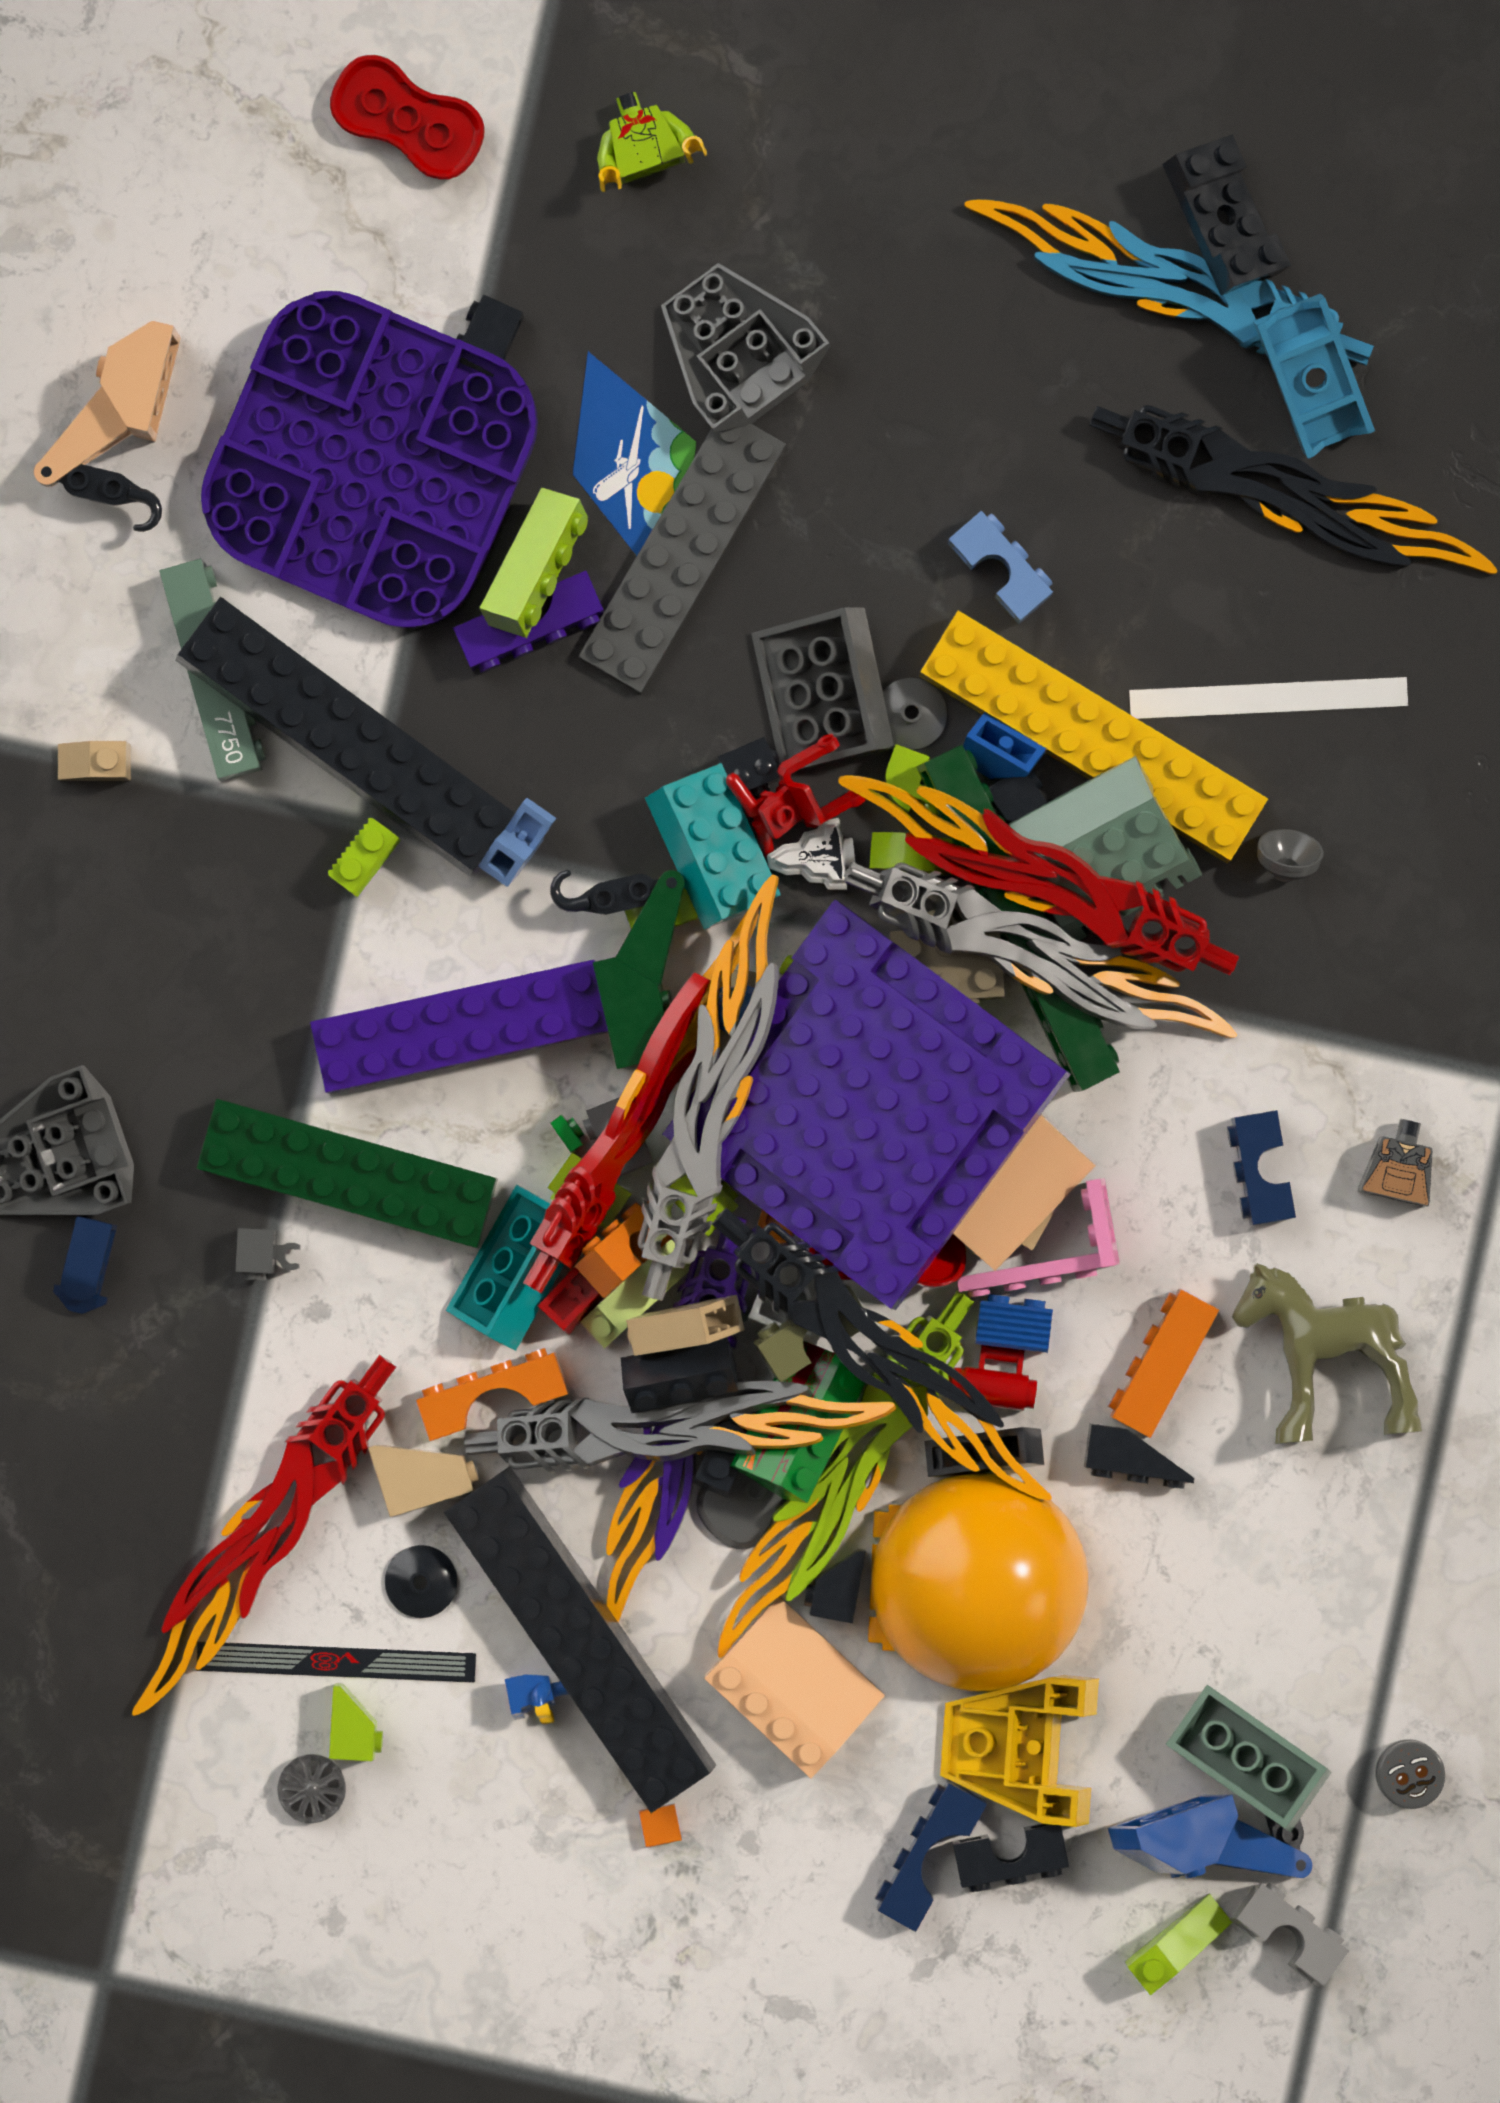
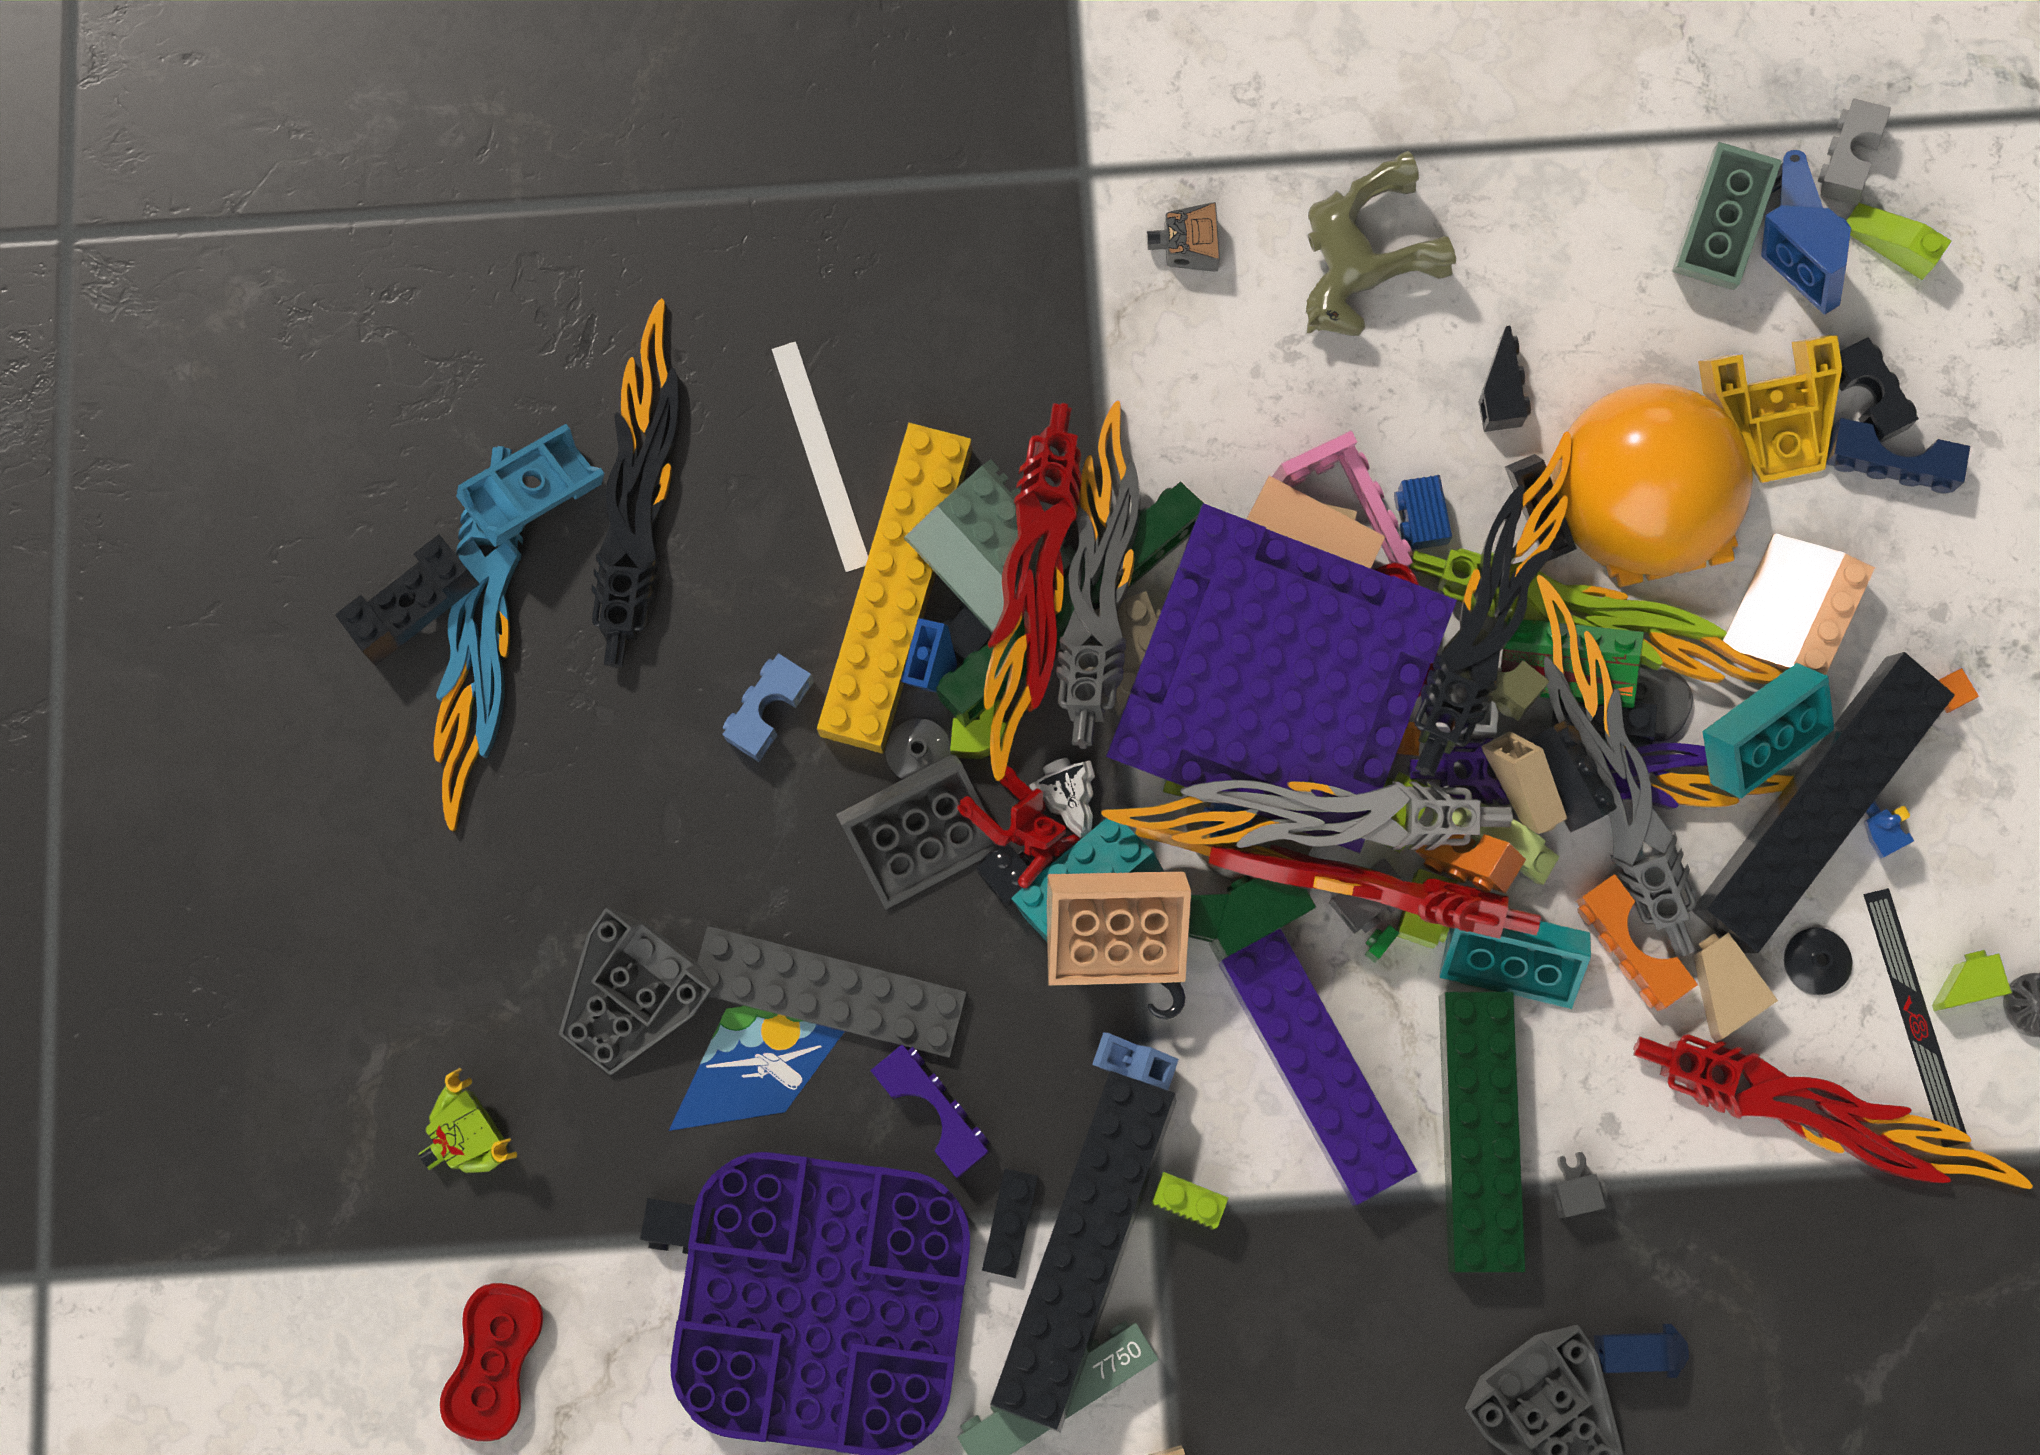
camera: 105 degrees left, 10 degrees down
(395, 671) = (1010, 1223): none -> black plate
(534, 562) = (876, 1118): lime brick -> none
(570, 1301) = (1530, 896): red hinge -> none
(653, 857) = (1117, 928): none -> light nougat slope
(668, 1601) = (1768, 730): none -> teal brick
(837, 1589) = (1699, 594): black slope -> none
(891, 848) = (1045, 721): lime brick -> none
(998, 1387) = (1481, 510): red piece -> none
(1163, 1363) = (1415, 382): orange brick -> none
(1262, 1200) = (1202, 362): dark blue arch -> none
(1289, 854) = (946, 393): dark grey piece -> none
(1410, 1774) = (1687, 96): dark grey head -> none

